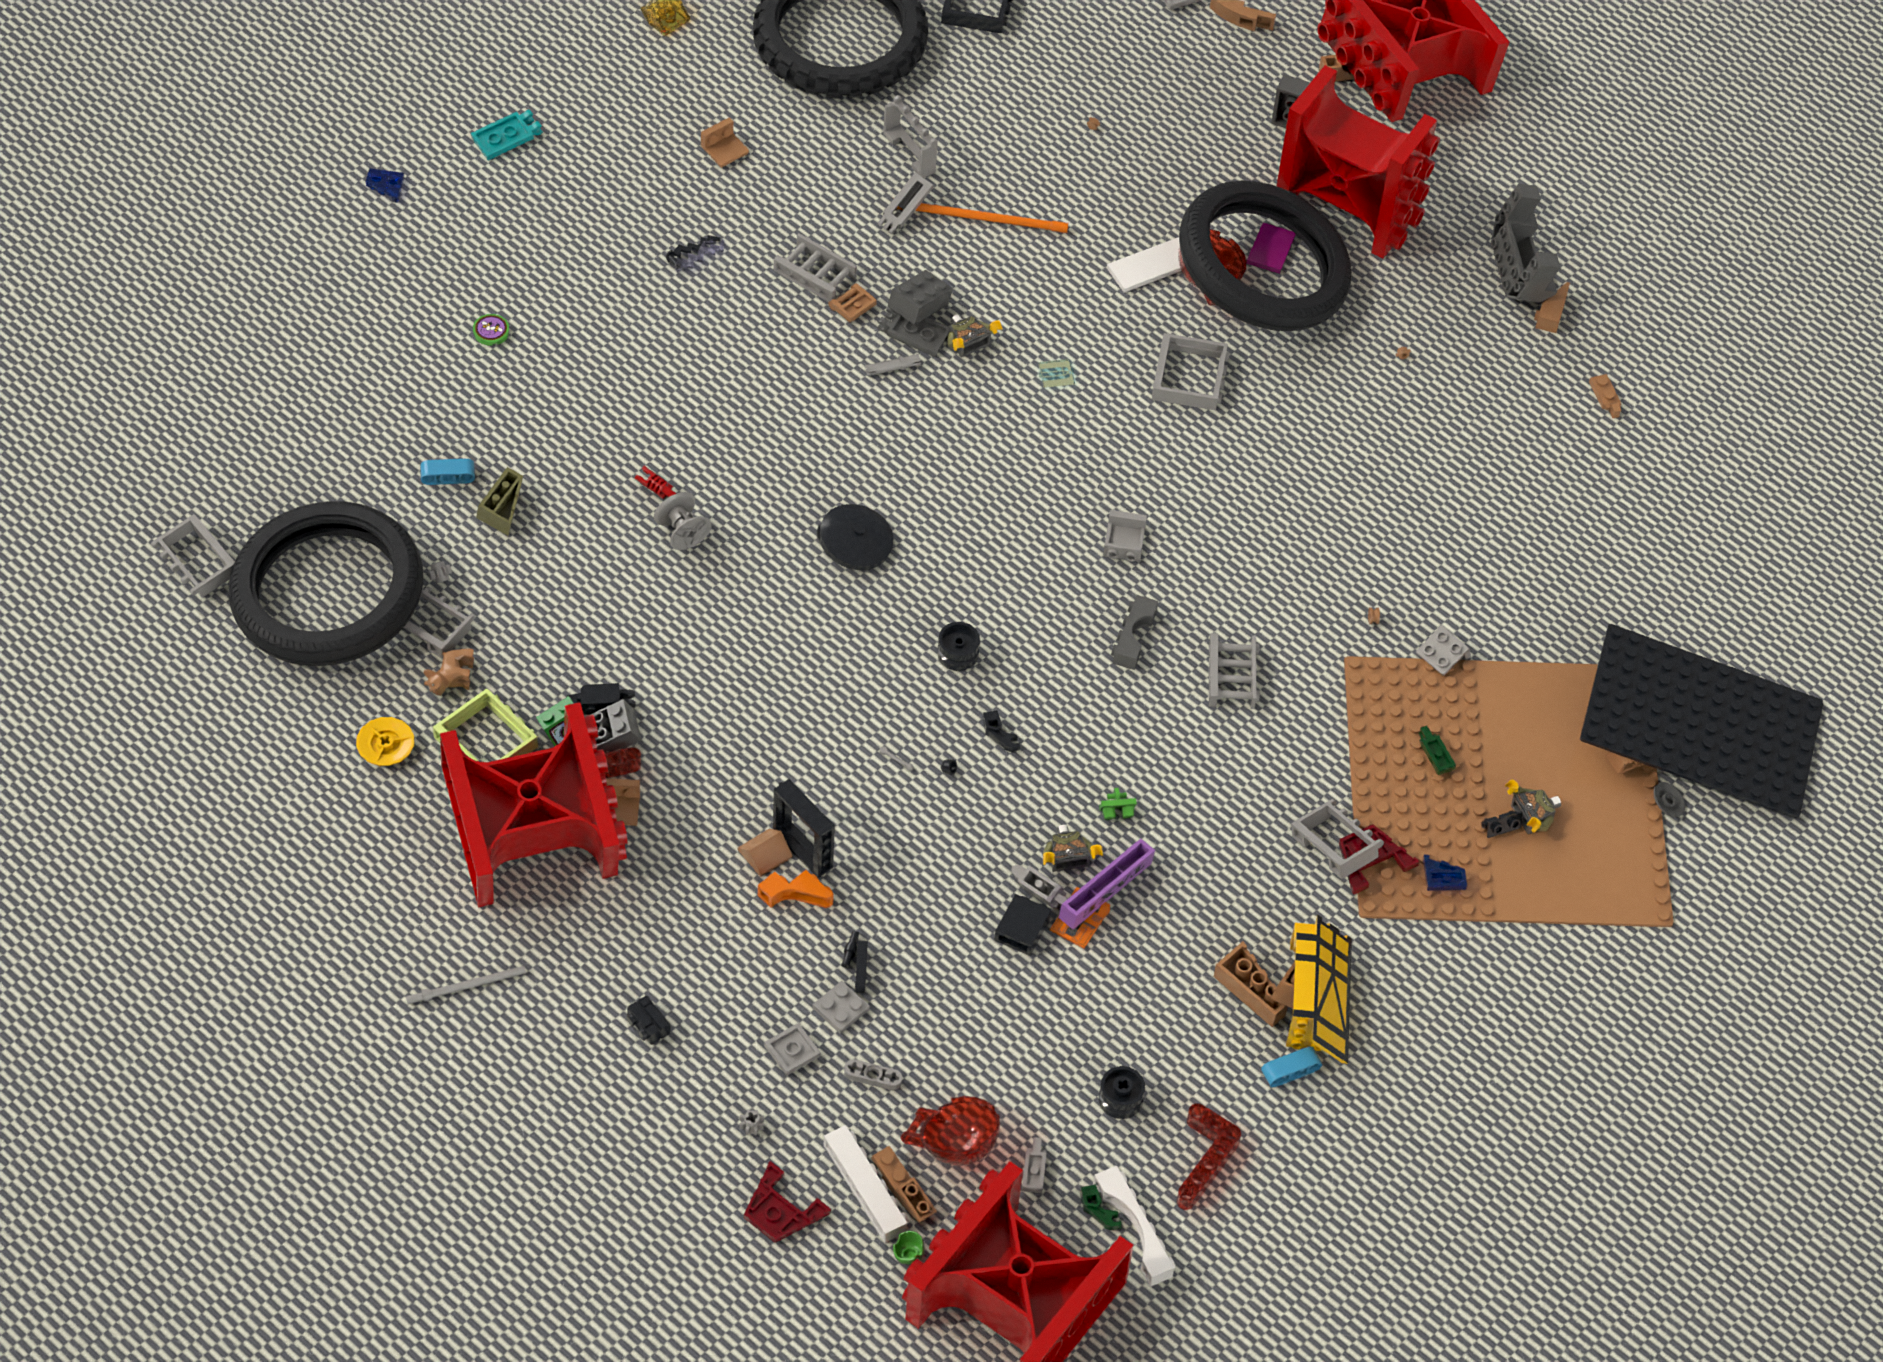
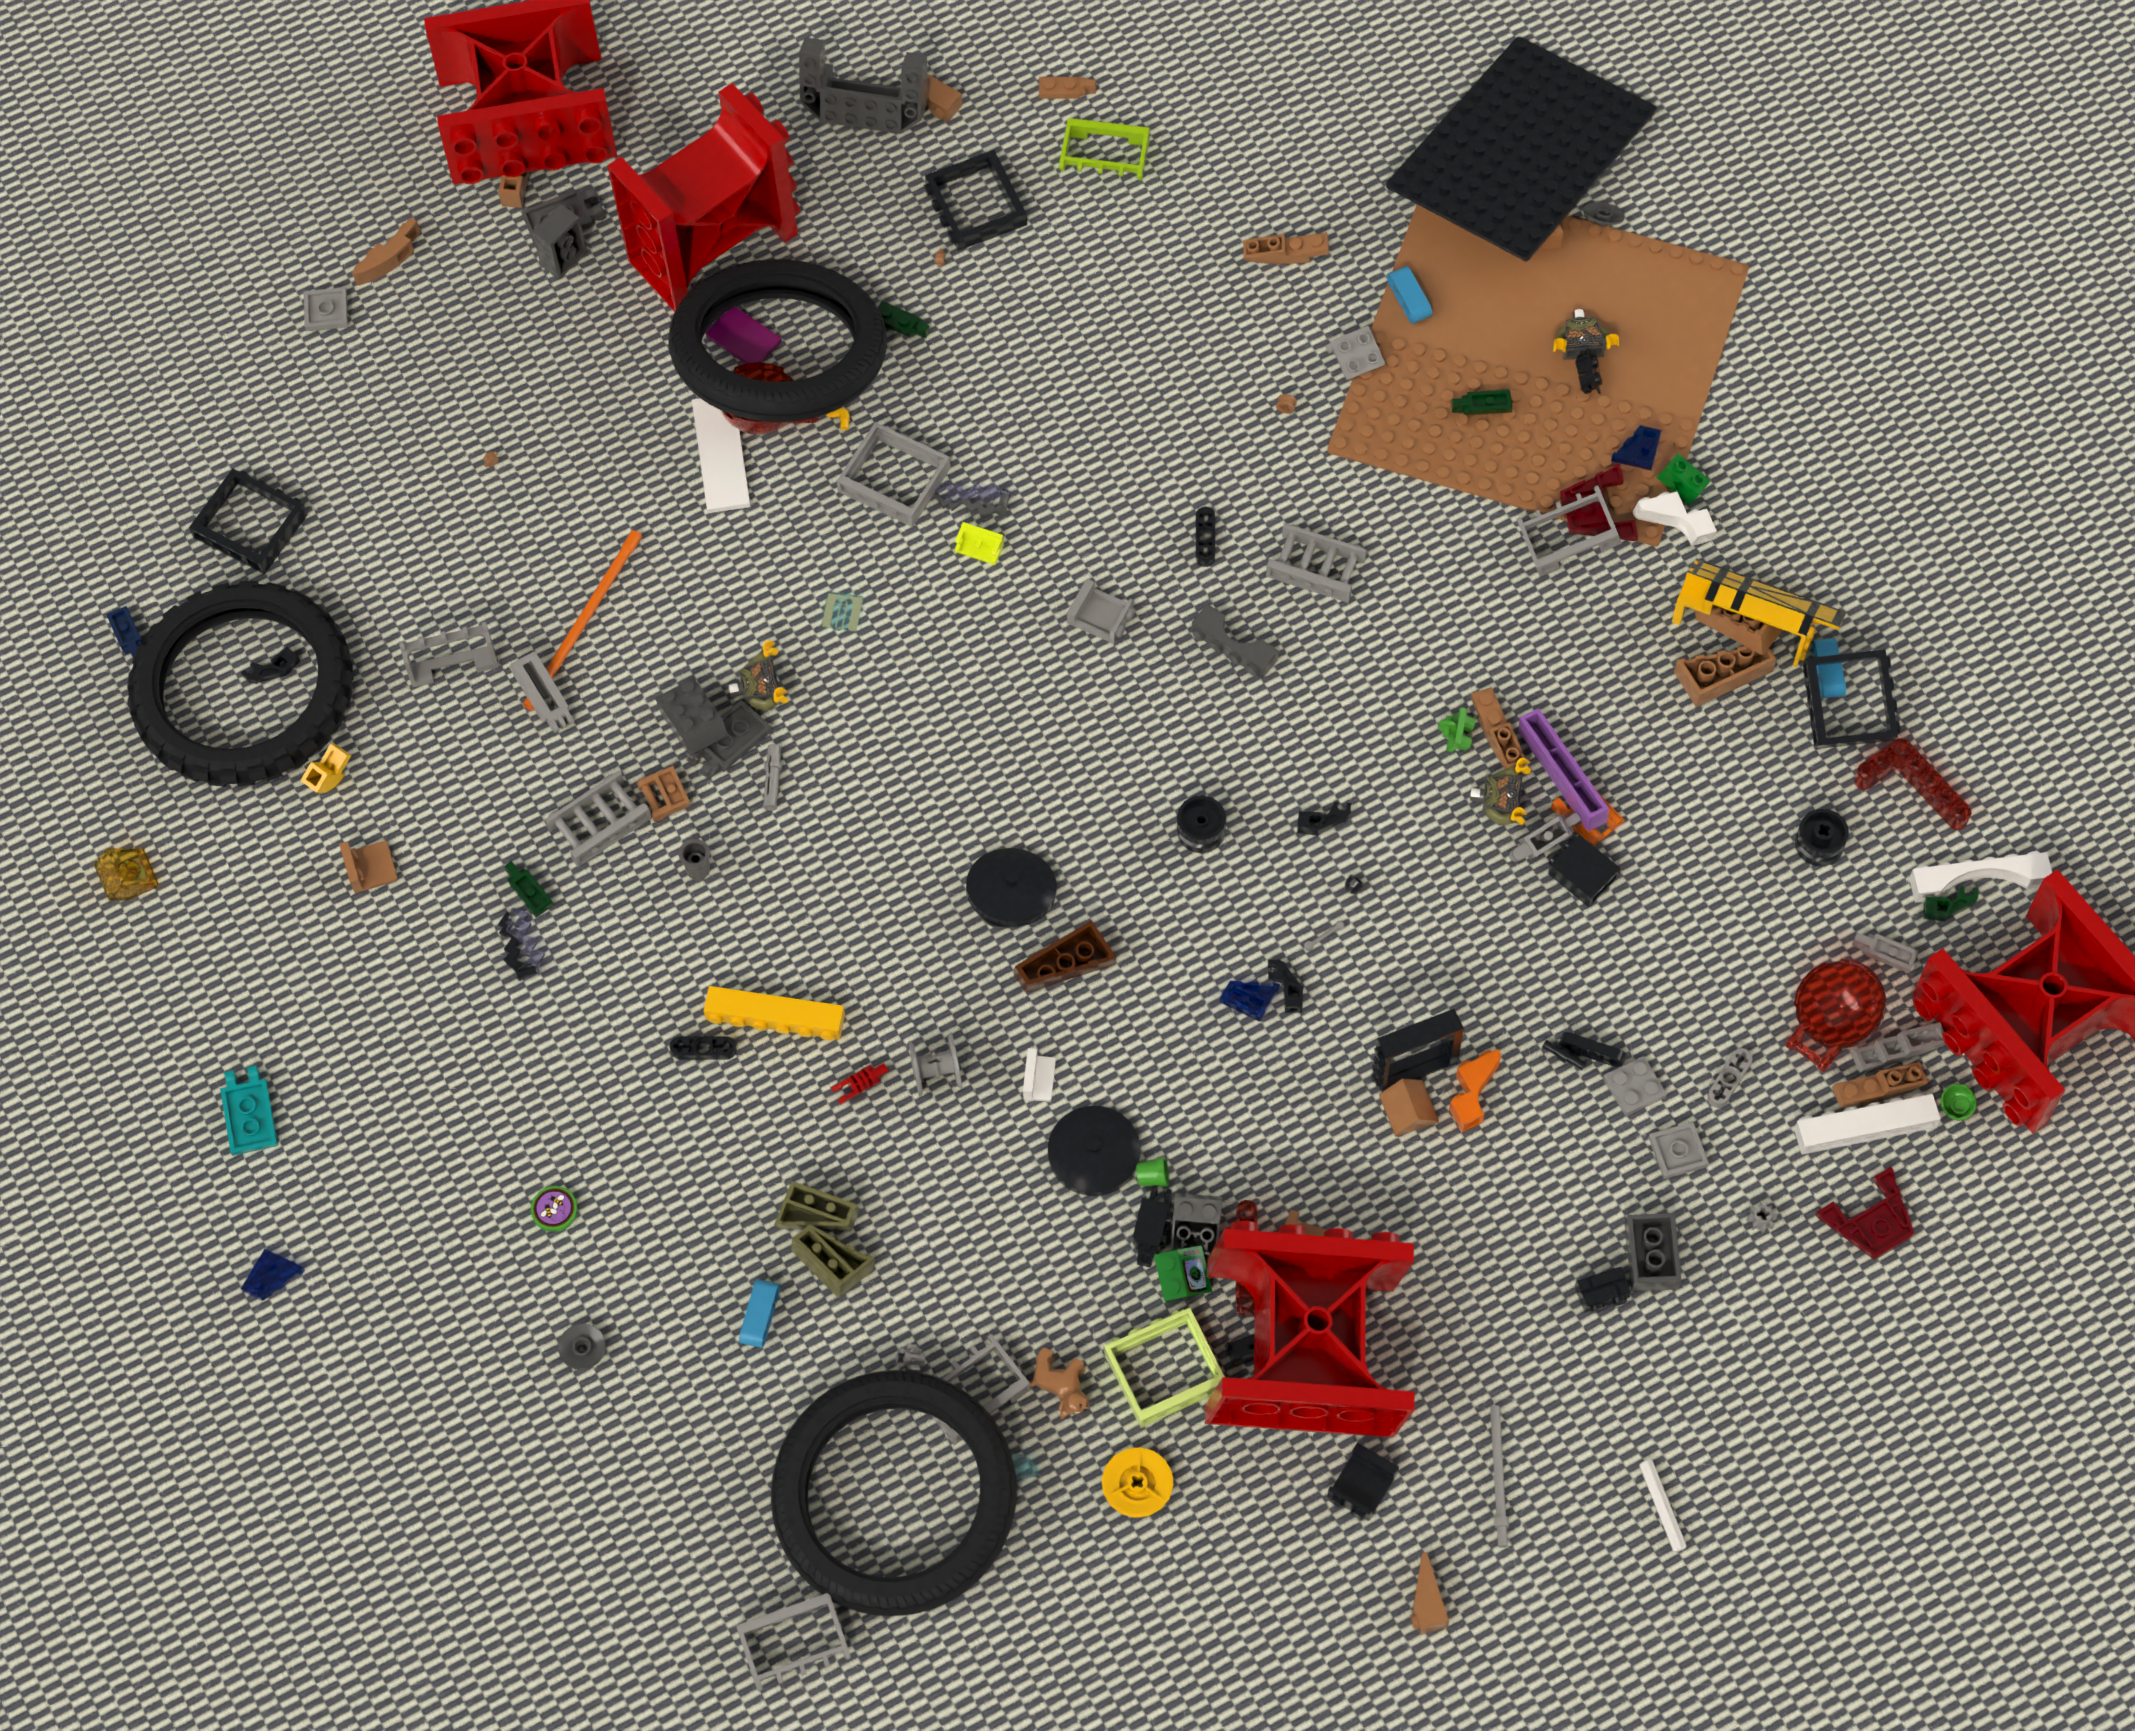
camera: 65 degrees left, 10 degrees up
(347, 955) = (1428, 1605): none -> medium nougat slope
(377, 668) = (1024, 1467): none -> clear light blue tile
(386, 372) = (579, 1336): none -> dark grey dish
(430, 892) = (1363, 1482): none -> black panel
(475, 1105) = (1662, 1505): none -> white axle
(540, 479) = (813, 1207): none -> olive wedge
(645, 689) = (1153, 1172): none -> bright green piece
(652, 376) = (709, 1055): none -> black beam
(653, 649) = (1094, 1150): none -> black dish
(691, 1045) = (1653, 1252): none -> dark grey brick
(694, 417) = (774, 1013): none -> yellow brick
(702, 595) = (1038, 1077): none -> white panel
(740, 243) = (528, 890): none -> dark green hinge
(787, 99) = (328, 772): none -> yellow brick
(798, 329) = (695, 858): none -> flat silver plant
(807, 586) = (1065, 959): none -> reddish brown wedge
(820, 719) = (1249, 997): none -> clear blue wing
(842, 743) = (1283, 975): none -> black piece
(866, 51) = (264, 673): none -> black piece
(940, 1188) = (1899, 1048): none -> light grey slope
(1127, 834) = (1496, 729): none -> medium nougat slope
(1152, 442) = (979, 543): none -> neon yellow hinge
(1203, 440) = (965, 496): none -> piece
(1230, 328) = (844, 417): none -> yellow animal
(1231, 586) = (1210, 544): none -> black beam
(1246, 1058) = (1815, 705): none -> black window
(1333, 341) = (902, 321): none -> dark green hinge
(1391, 909) = (1670, 511): none -> white arch
(1426, 913) = (1683, 478): none -> green brick
(1452, 384) = (986, 231): none -> black window
(1518, 675) = (1409, 295): none -> dark azure beam
(1521, 579) = (1283, 250): none -> medium nougat slope
(1566, 406) = (1080, 128): none -> lime hinge

